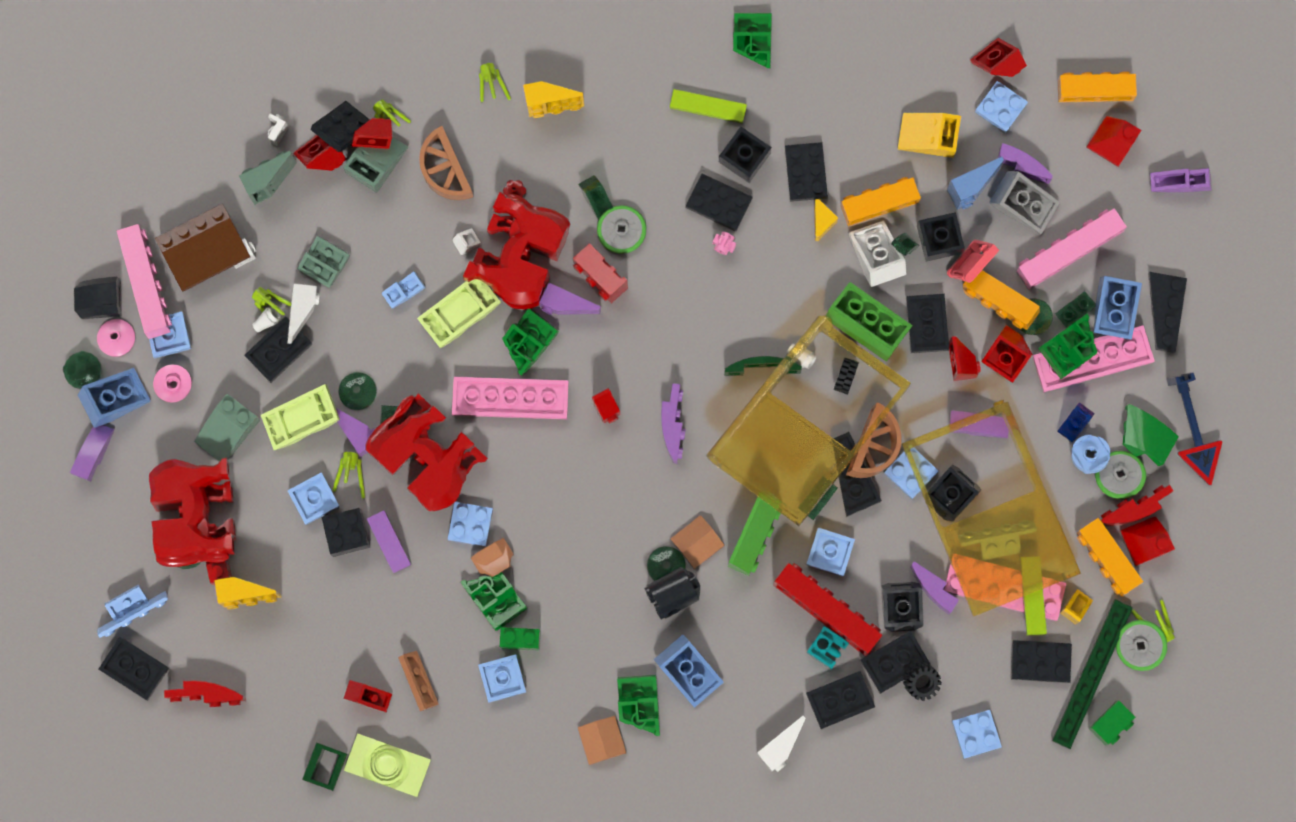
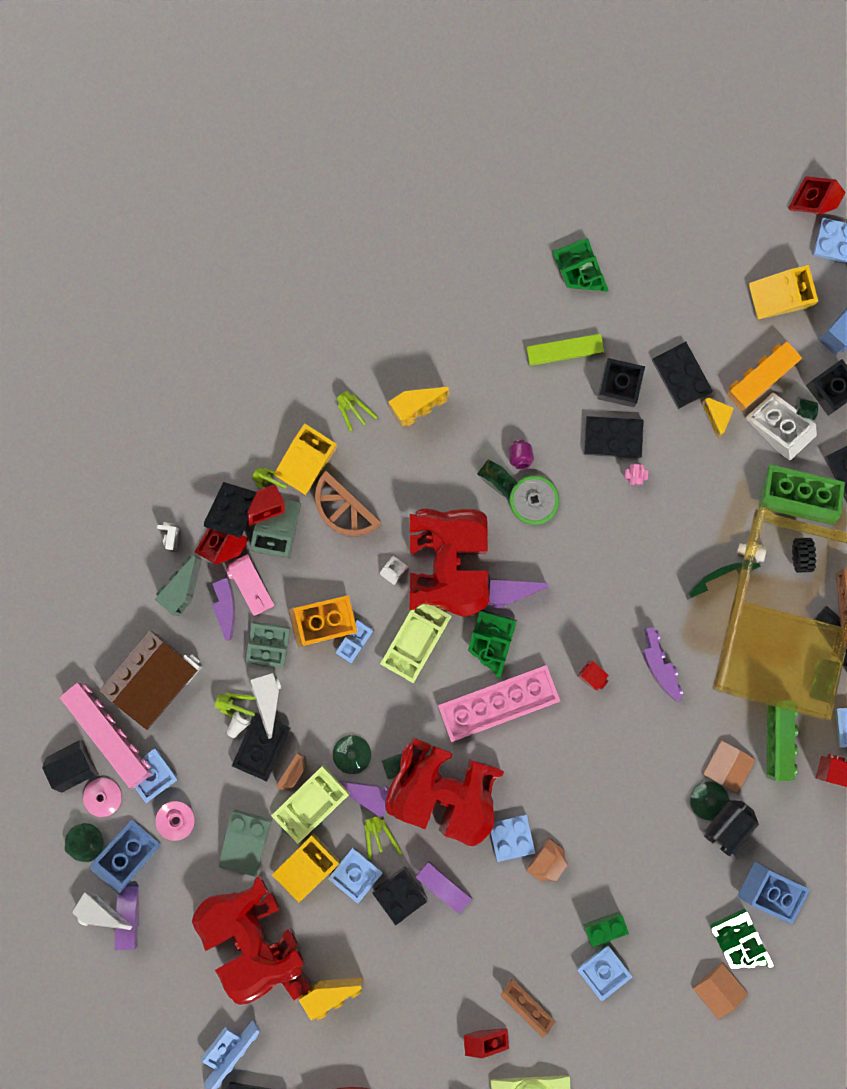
camera: 20 degrees left, 5 degrees up
(68, 436) = (96, 912): none -> white slope
(272, 472) = (306, 868): none -> yellow slope
(296, 384) = (293, 772): none -> nougat slope
(299, 212) = (225, 607): none -> medium lavender slope
(330, 201) = (250, 584): none -> bright pink door
(382, 259) = (323, 621): none -> light orange slope
(428, 109) = (305, 459): none -> yellow slope
(495, 599) = (565, 900): green slope -> none
(518, 185) = (412, 499): red plant -> none
(600, 274) = (533, 551): wedge -> none
(626, 183) = (520, 454): none -> magenta head

